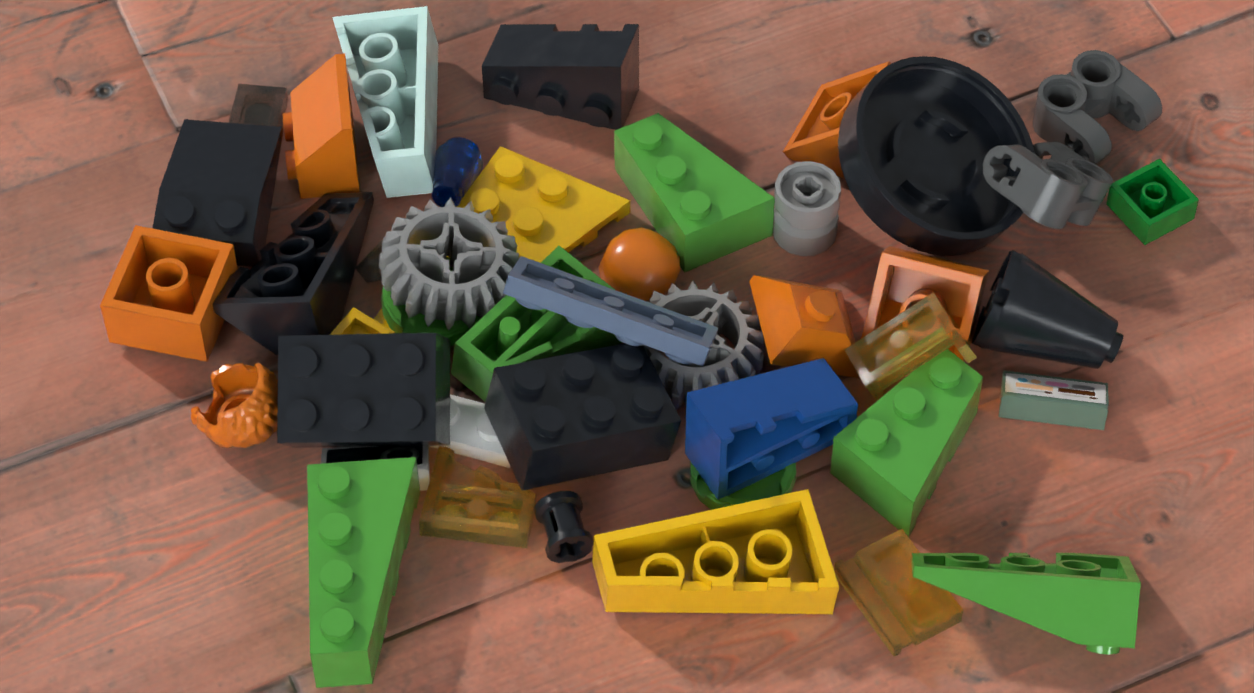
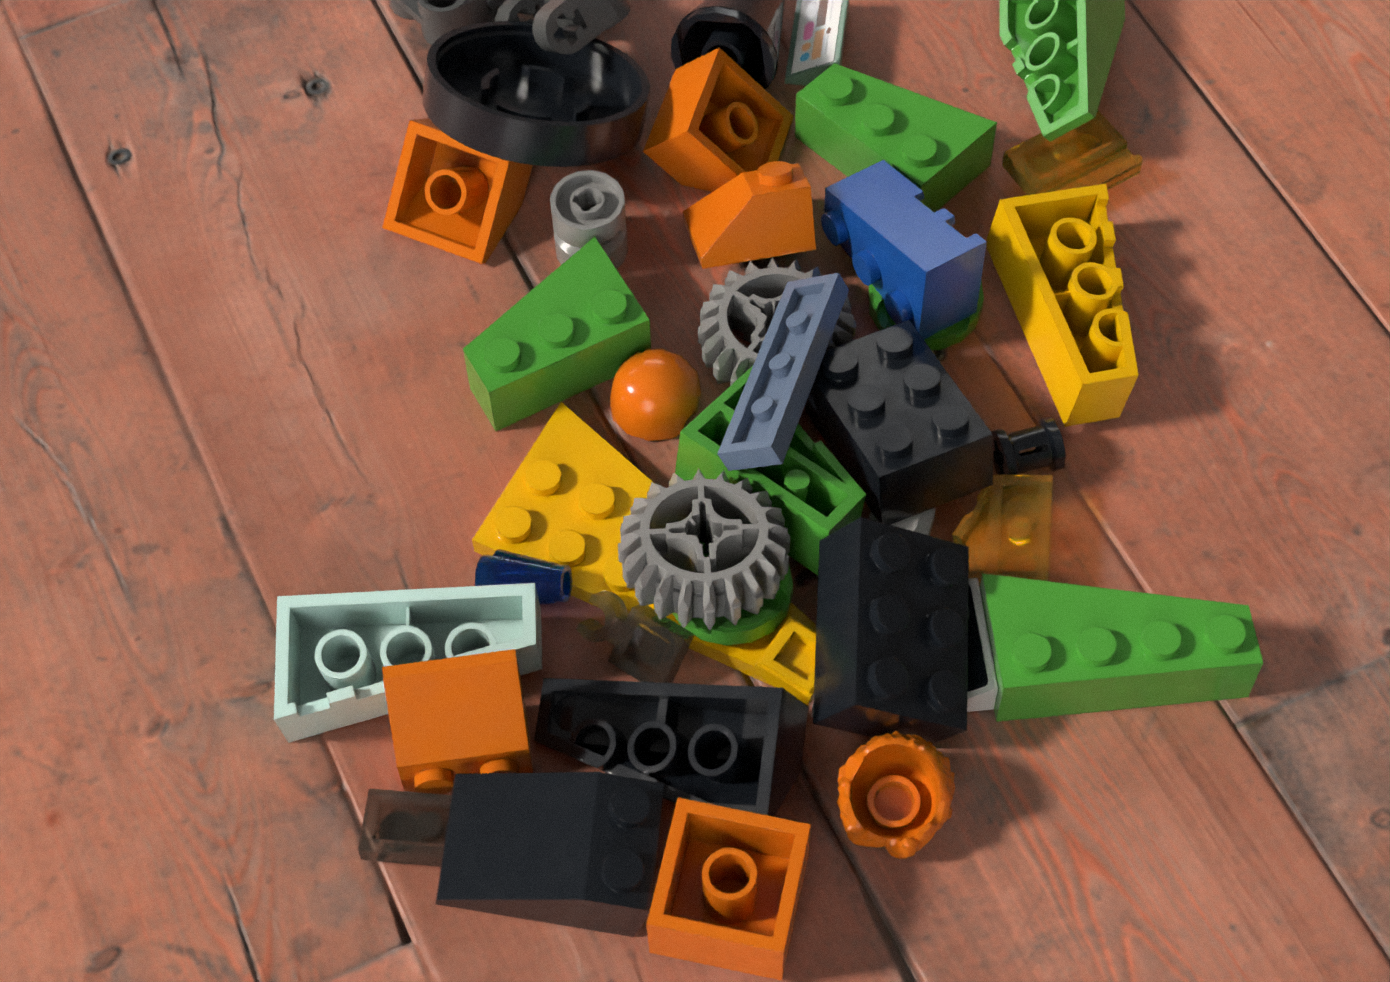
camera: 90 degrees left, 5 degrees up
(565, 73) = (374, 462): black wedge -> none
(906, 344) = (802, 121): clear yellow panel -> none

